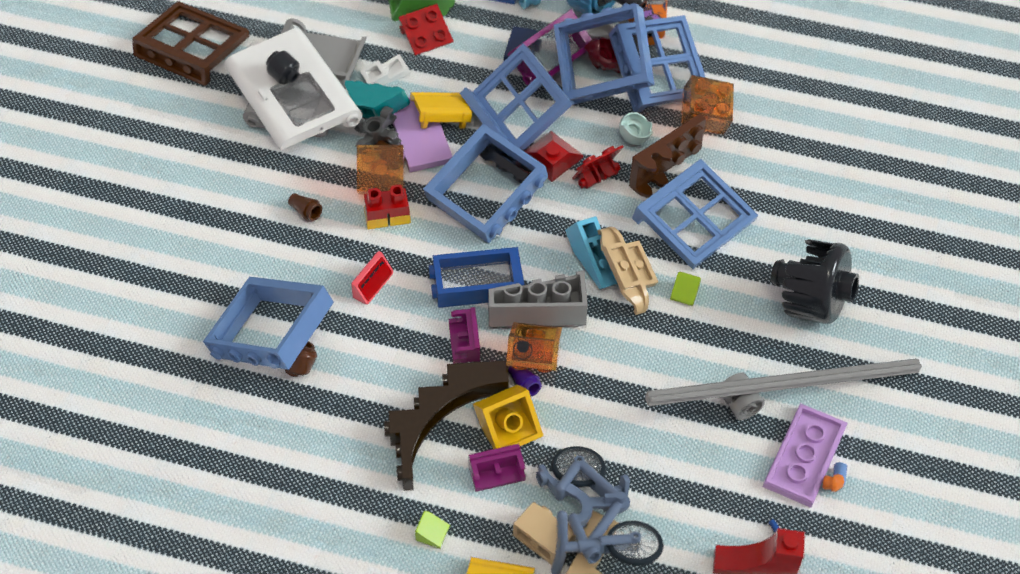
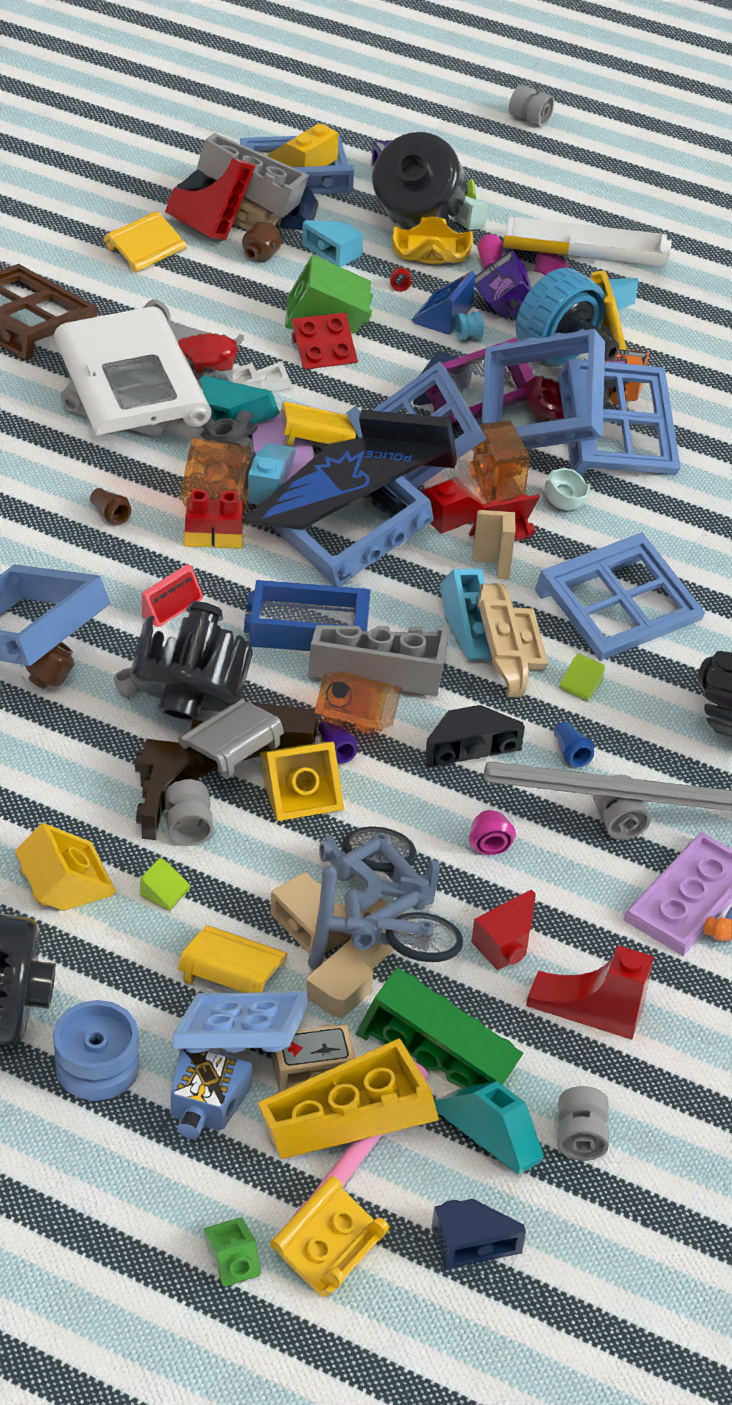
camera: 10 degrees right, 10 degrees down
(282, 67) = (122, 340): black head -> none
(346, 59) = (209, 351): none -> red hair
(355, 533) = (63, 869): none -> yellow slope
(362, 358) = (124, 683): none -> light grey hinge
(411, 346) = (195, 669): none -> black piece
(417, 157) = (269, 471): none -> medium azure slope
(434, 467) = (188, 812): none -> light grey wheel
(452, 396) = (234, 735): none -> light grey piece
(464, 336) = (274, 676): magenta hinge -> none
(483, 148) = (356, 467): none -> black piece
(497, 467) = (270, 830): magenta hinge -> none
(585, 119) = (500, 462): none -> clear orange brick
(598, 184) = (495, 540): none -> tan panel
(620, 355) = (472, 734): none -> black slope
(655, 436) = (491, 833): none -> dark pink cone
(664, 154) = (599, 519): reddish brown hinge -> none
(686, 517) = (505, 931): none -> red slope
(694, 349) = (574, 746): none -> blue cone
(710, 99) = (669, 475): clear orange brick -> none

